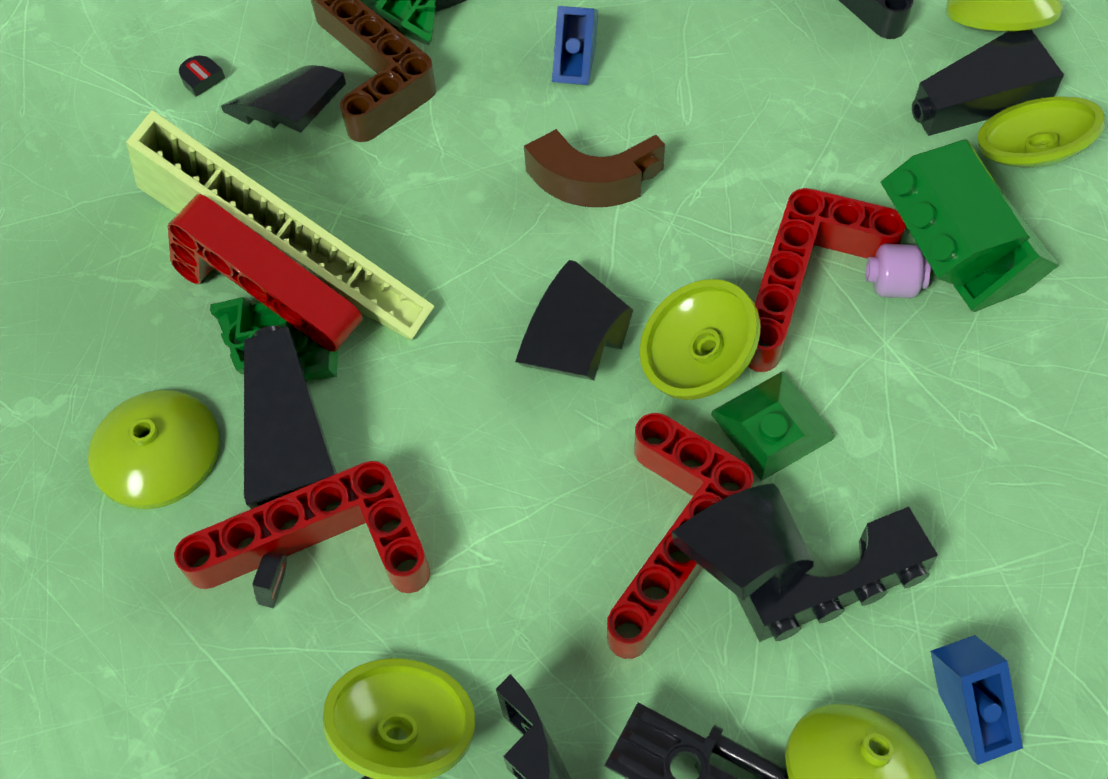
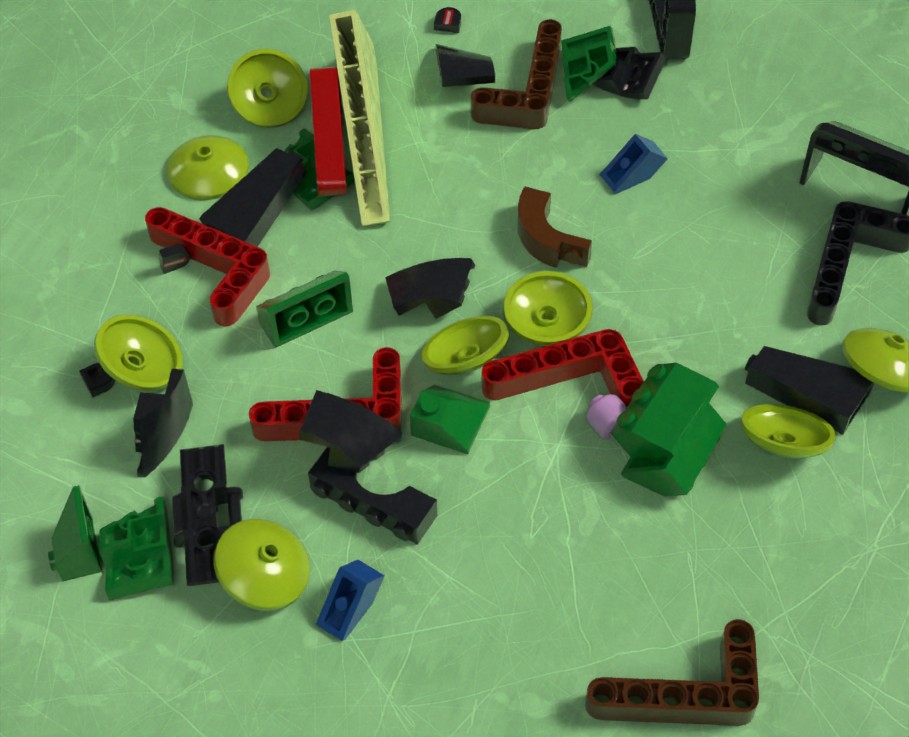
camera: 50 degrees right, 5 degrees down
(117, 279) = (272, 72): none -> lime dish
(489, 470) = (306, 307): none -> green slope
(713, 215) = (550, 297): none -> lime dish

